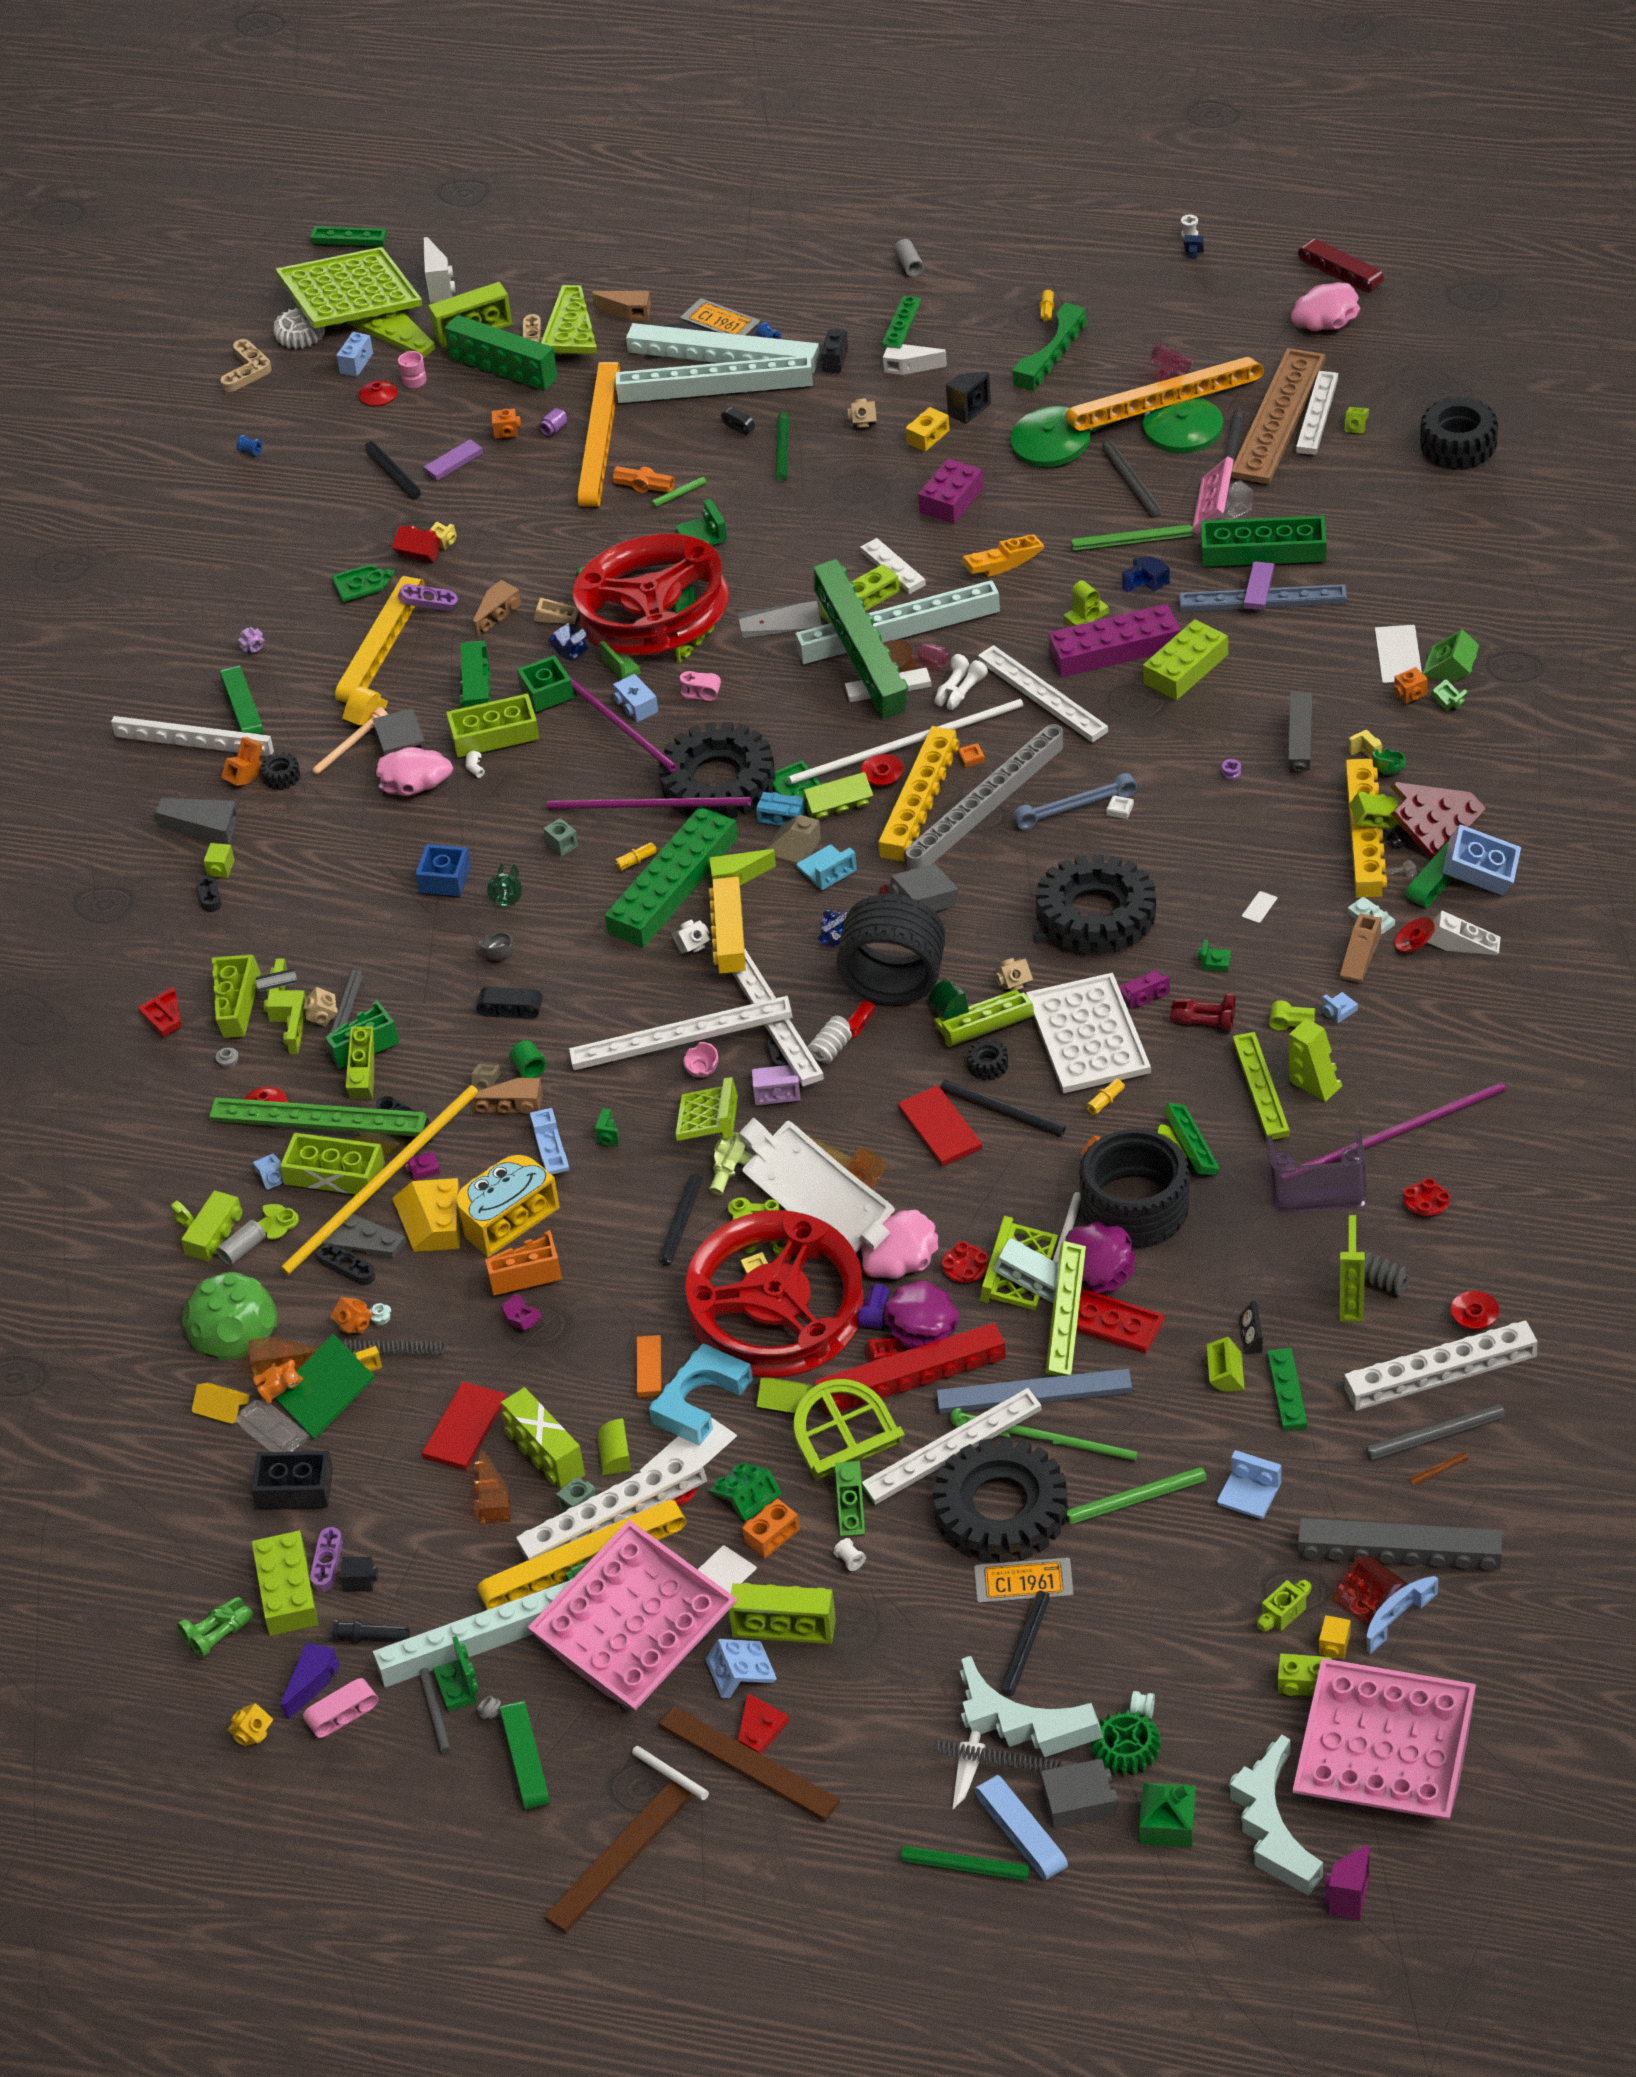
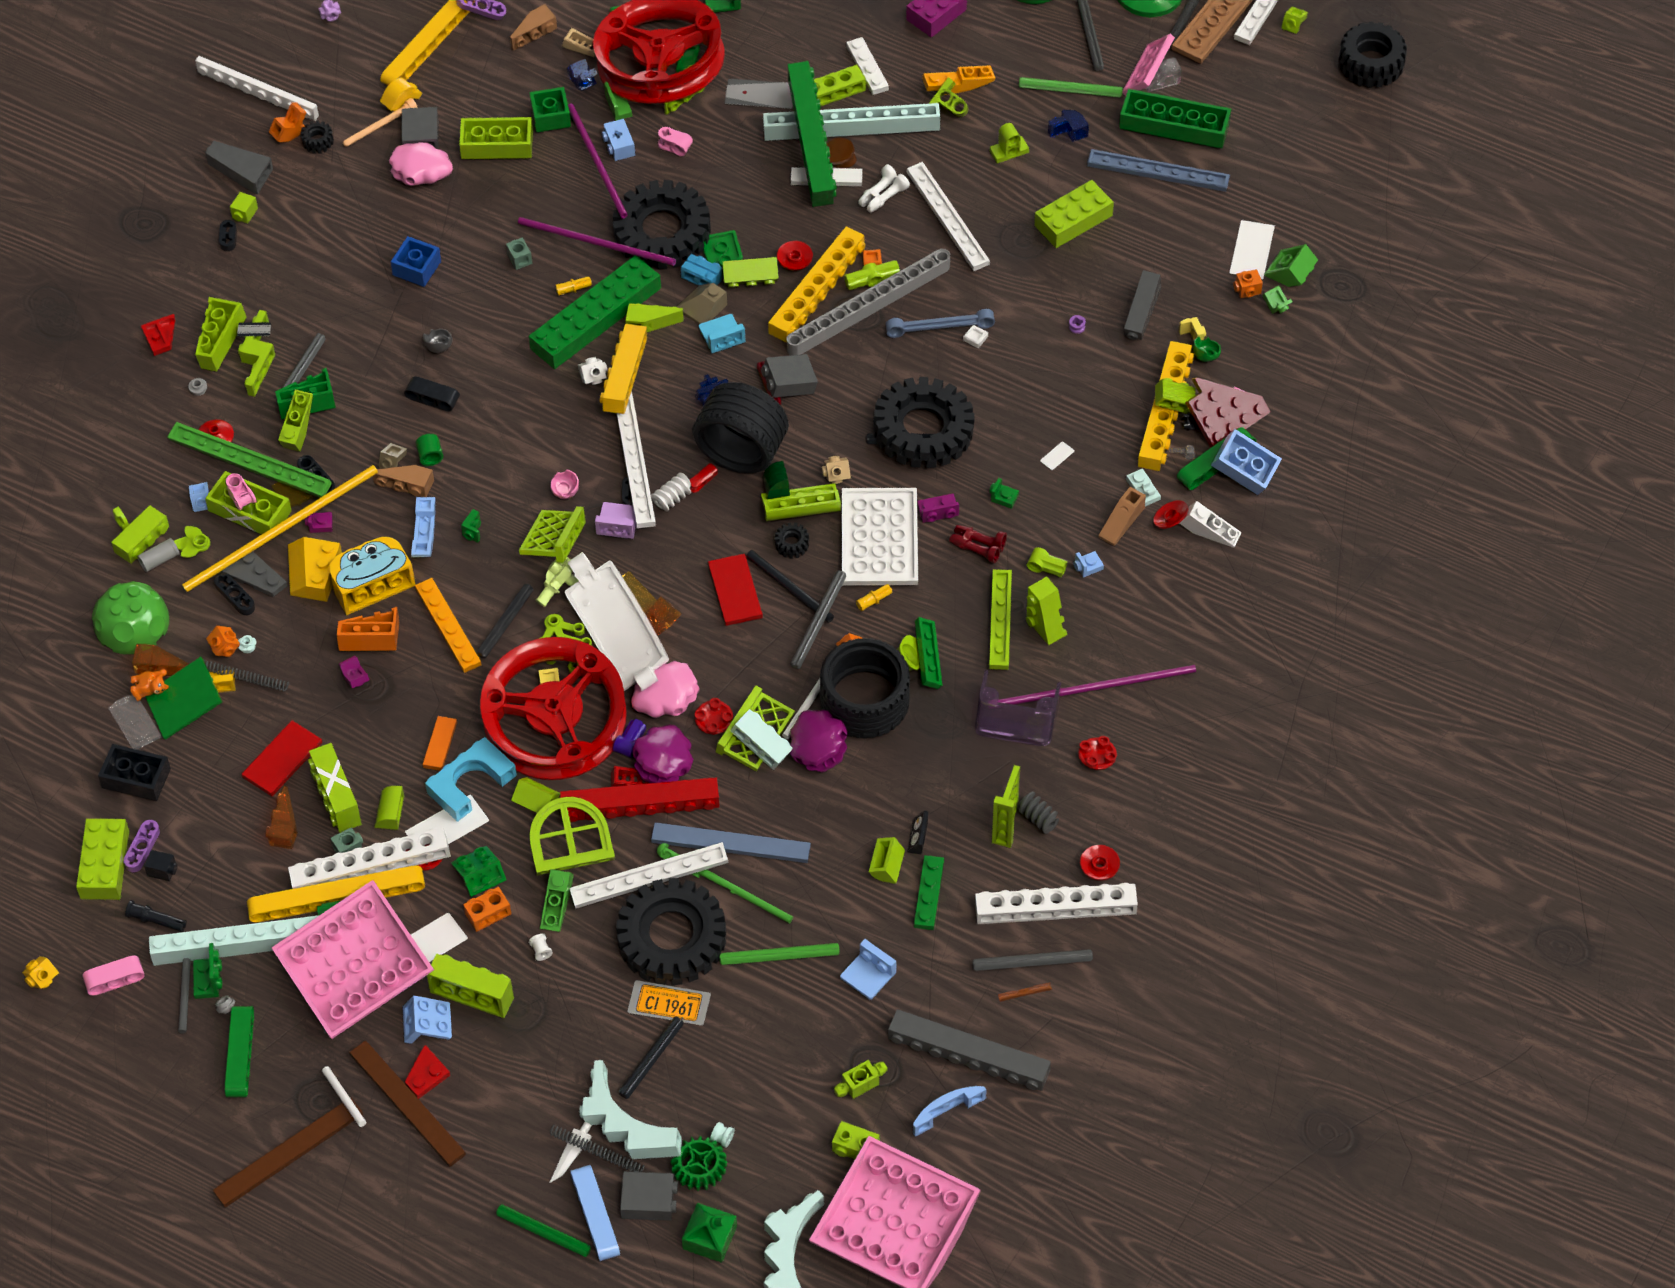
camera: 10 degrees right, 10 degrees up
(218, 1402) = (100, 688): yellow panel -> none
(227, 1618) = (53, 877): bright green piece -> none
(241, 700) = (305, 65): green beam -> none
(310, 1676) = (98, 943): dark purple slope -> none
(320, 1006) = (282, 361): tan brick -> none
(321, 1147) = (240, 494): none -> bright pink piece
(471, 764) = (470, 168): white arm -> none
(474, 674) = (496, 89): green wedge -> none
(508, 881) = (458, 289): clear green piece -> none
(614, 1239) = (448, 625): none -> light orange plate
(680, 1033) = (554, 456): white plate -> none
(902, 742) = (821, 233): white piece -> none
(934, 654) = (872, 158): clear pink brick -> none
(977, 770) = (871, 274): none -> lime piece
(1008, 575) = (953, 101): none -> lime tile
(1050, 1133) = (818, 619): none -> dark grey axle
(1065, 1309) = (775, 780): lime plate -> none
(1112, 640) = (1020, 181): magenta brick -> none
(1117, 1321) = (812, 796): red tile -> none
(1259, 585) = (1157, 159): medium lavender tile -> none
(1334, 1637) = (890, 1117): yellow brick -> none
(1367, 1587) = (931, 1080): clear red slope -> none

